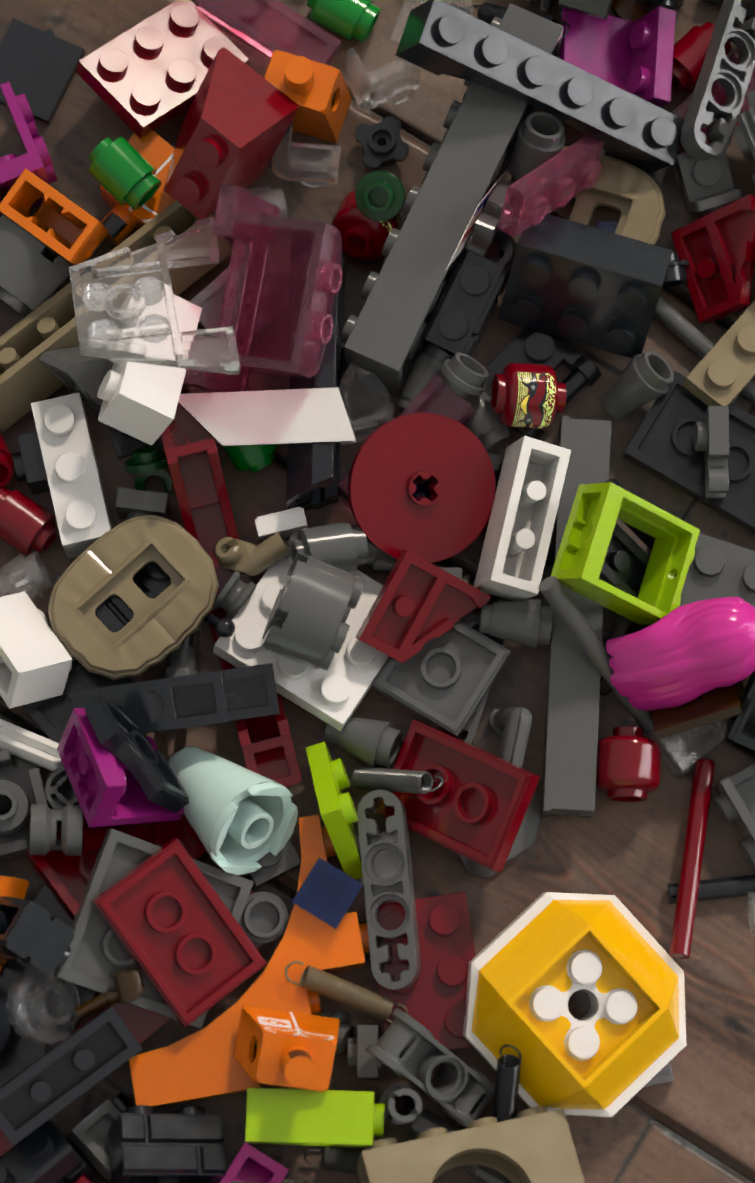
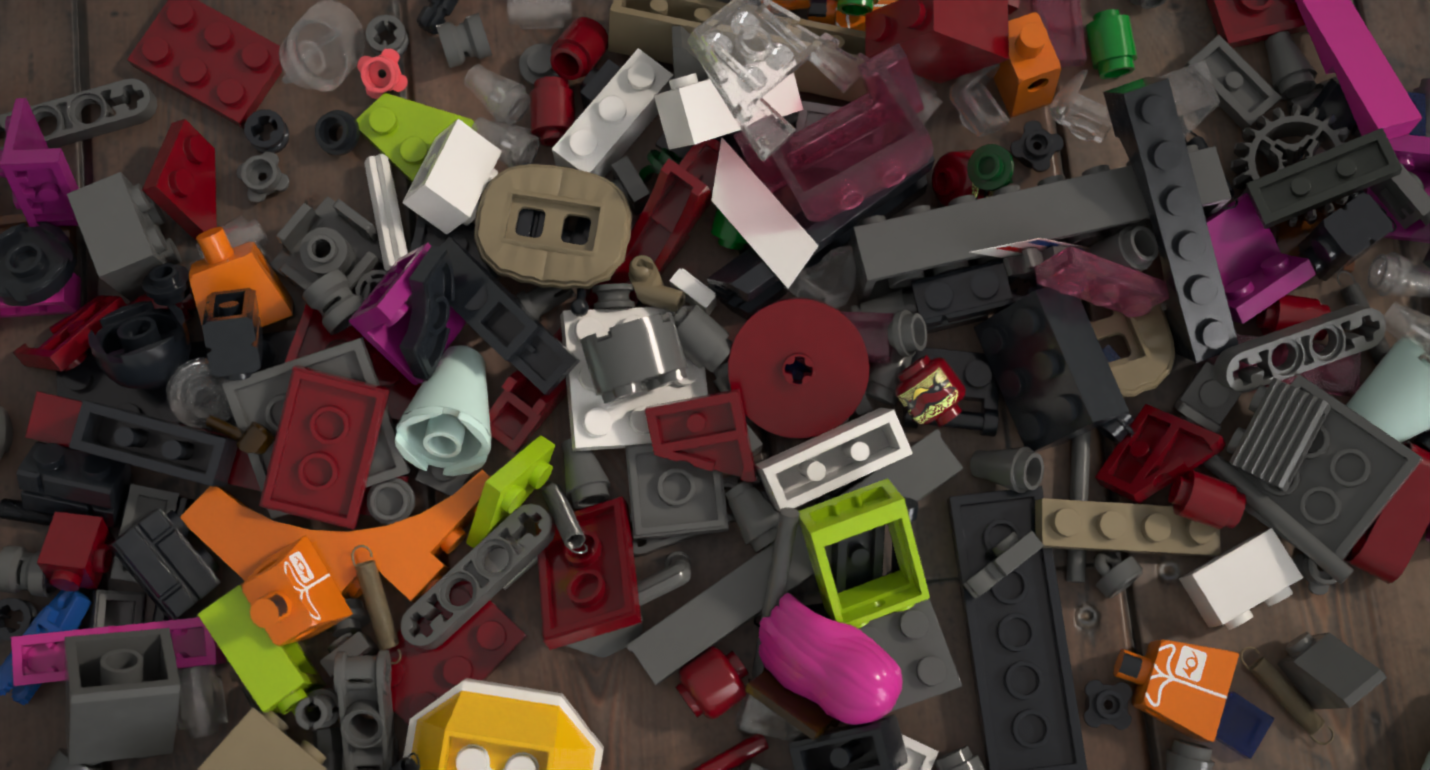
camera: 50 degrees right, 0 degrees up
(327, 893) = (438, 533): clear blue tile -> none

